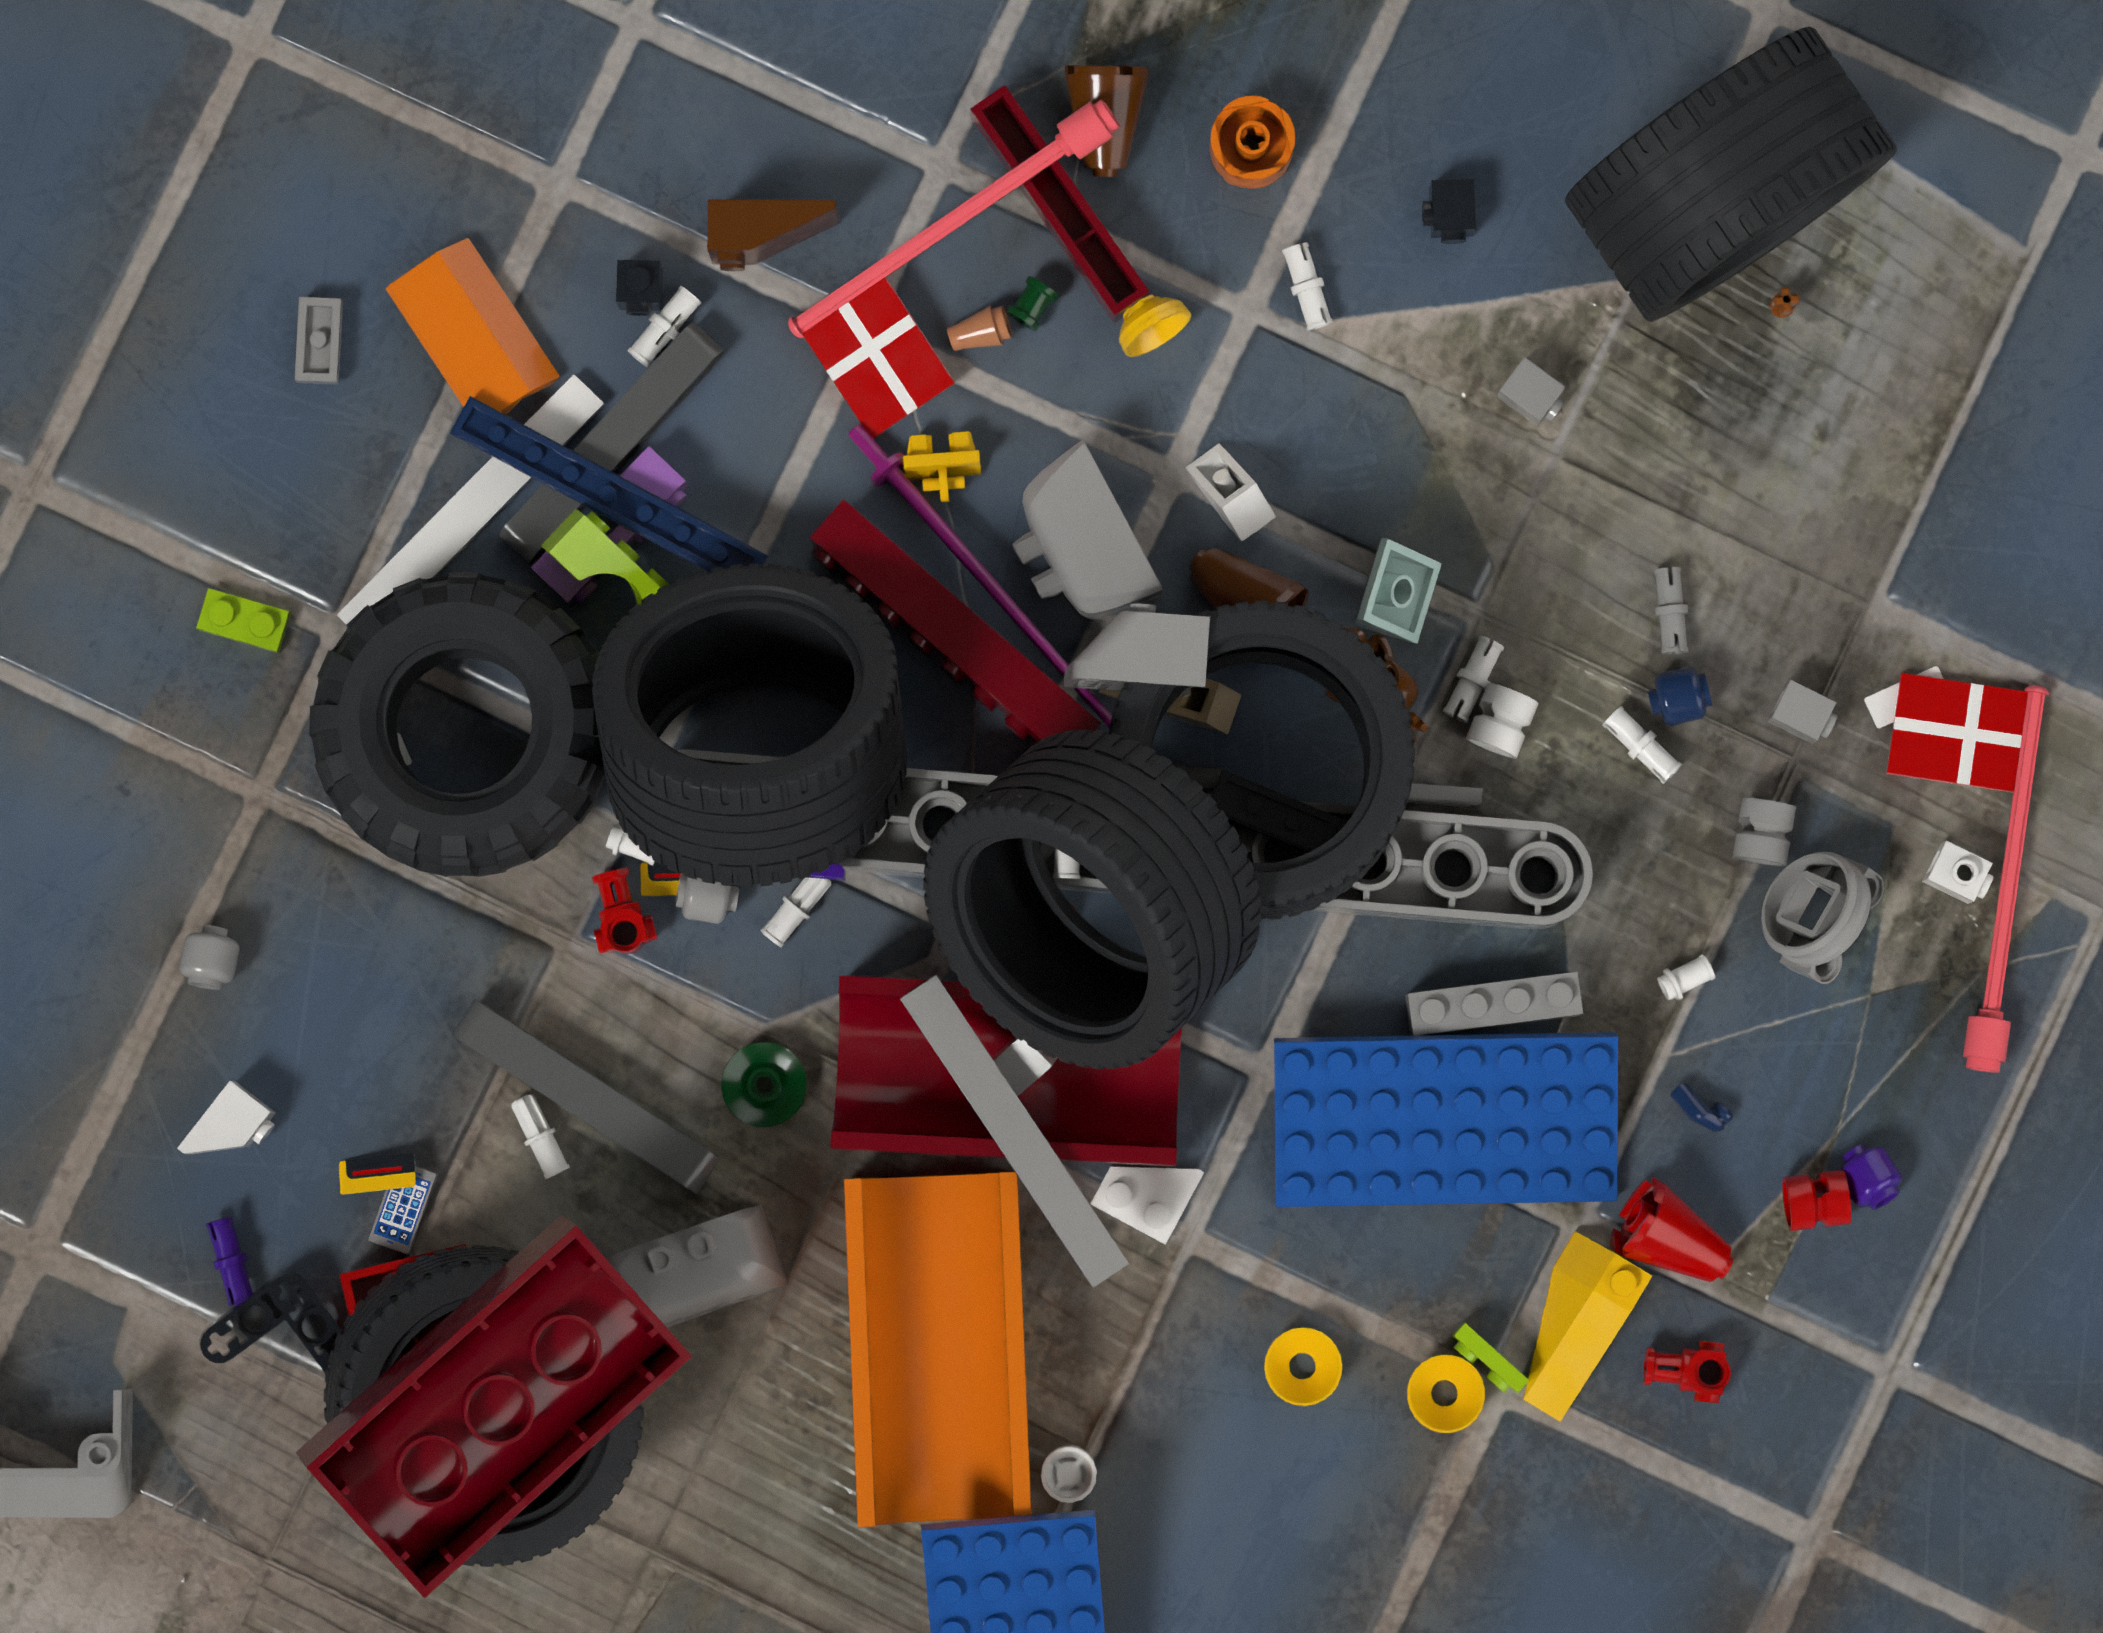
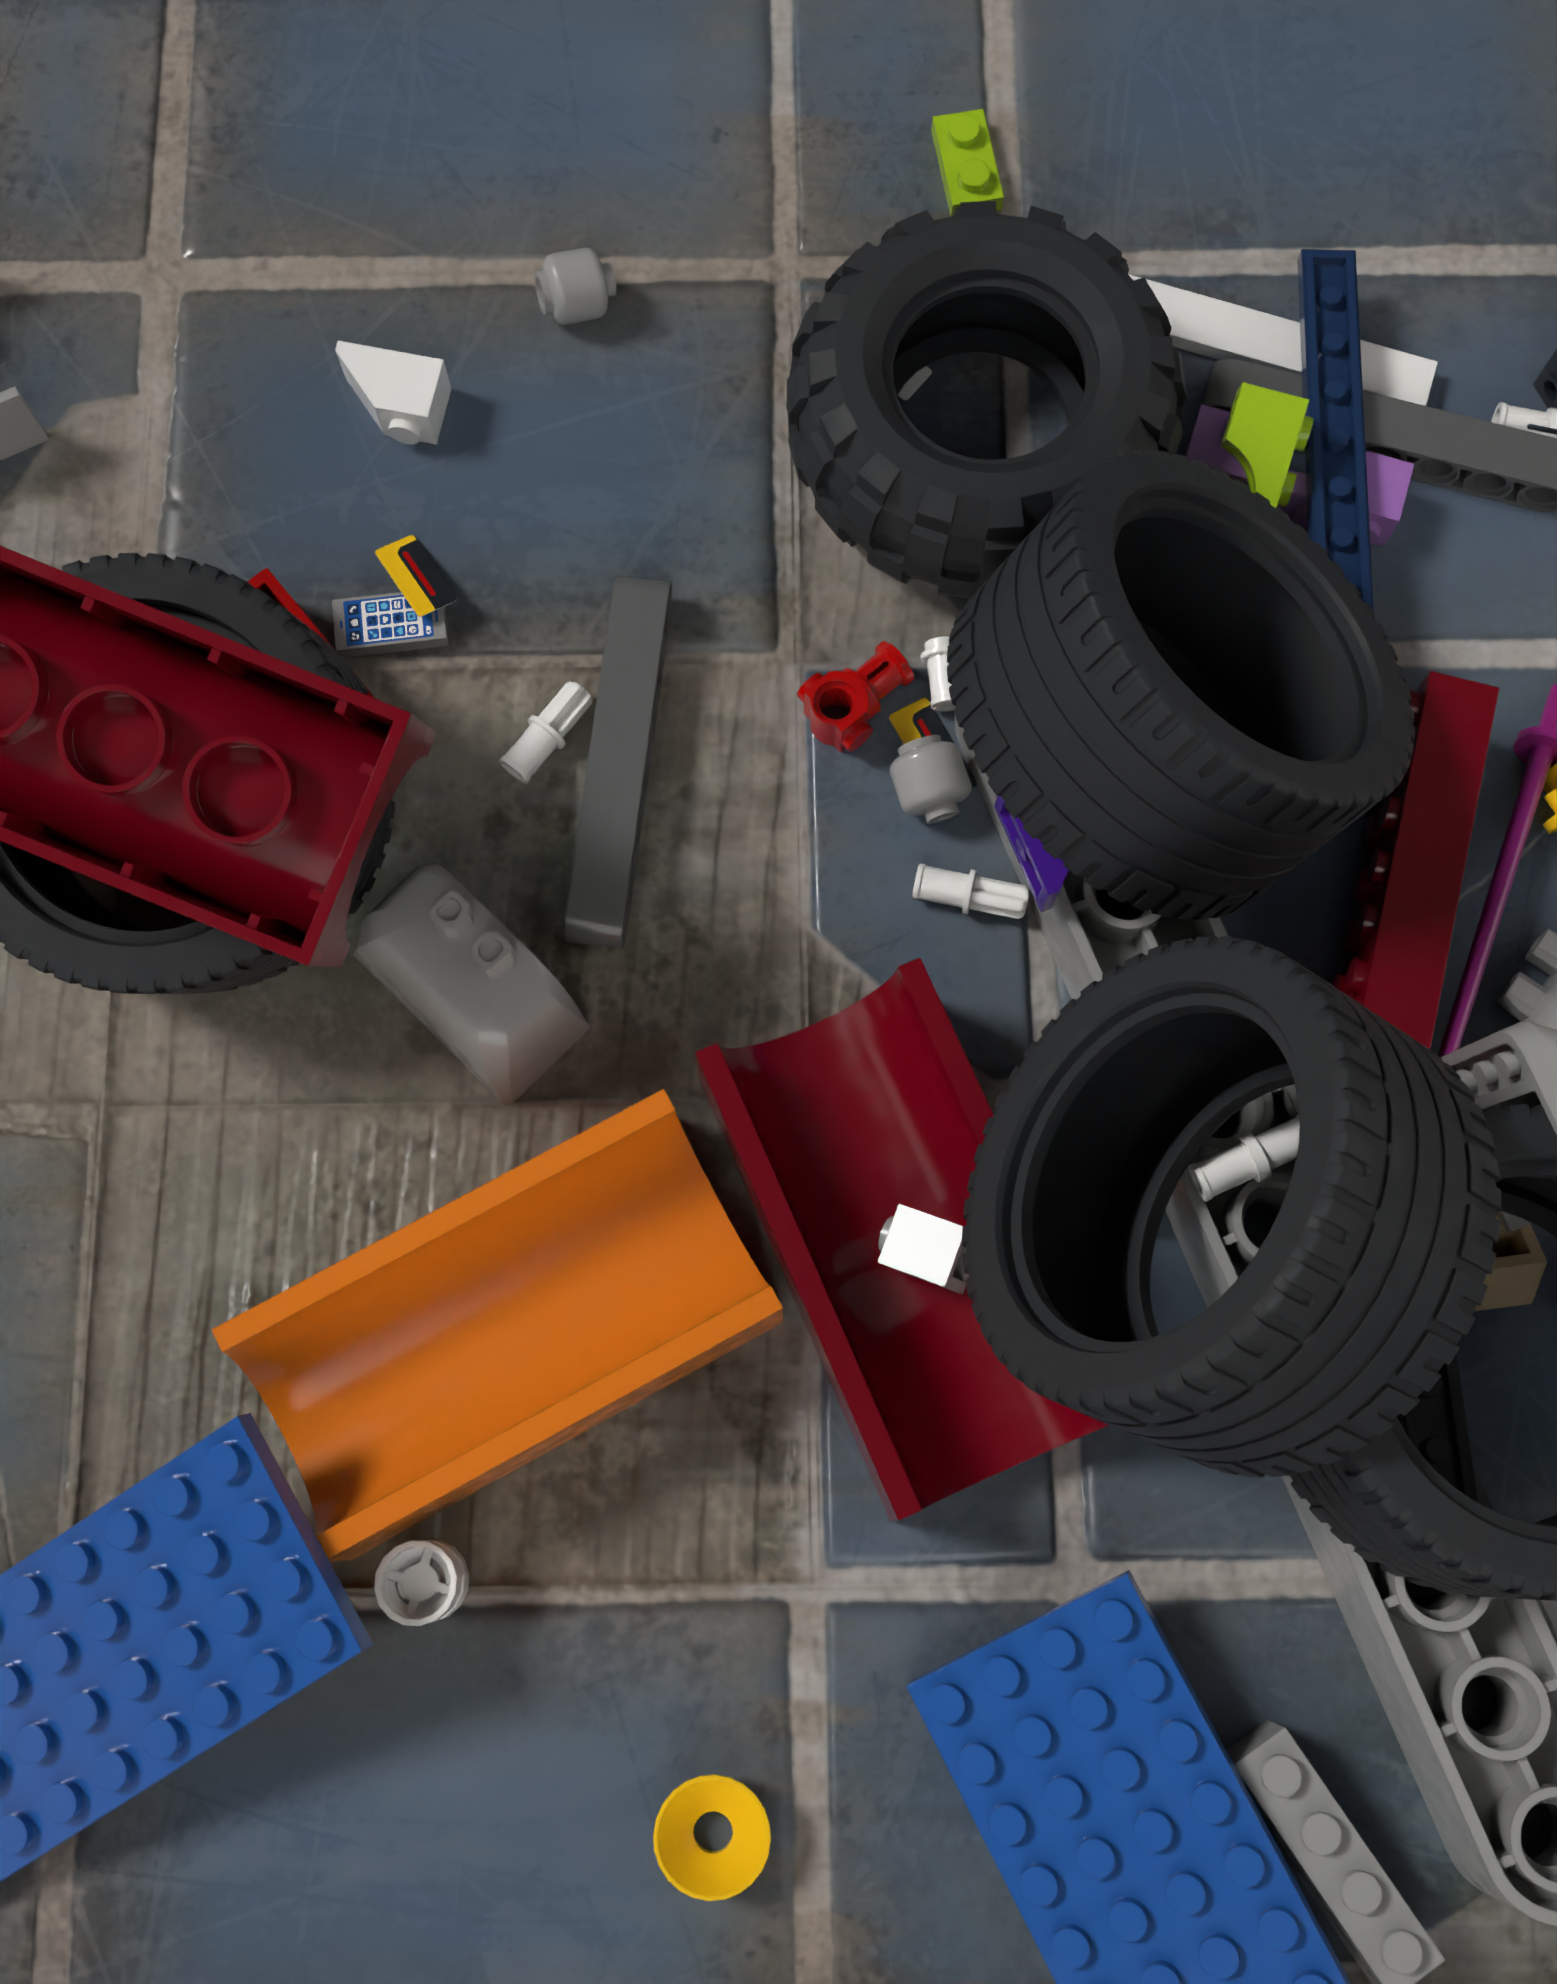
camera: 60 degrees right, 10 degrees down
(230, 1260) = (239, 465): dark purple pin -> none
(276, 1313) = (199, 532): black beam -> none
(318, 340) = (1313, 95): light grey plate -> none
(472, 329) = (1425, 232): orange slope -> none
(741, 1080) = (731, 928): dark green dish -> none
(1014, 1131) = (831, 1283): light grey tile -> none
(1147, 1197) = (834, 1505): white wing -> none

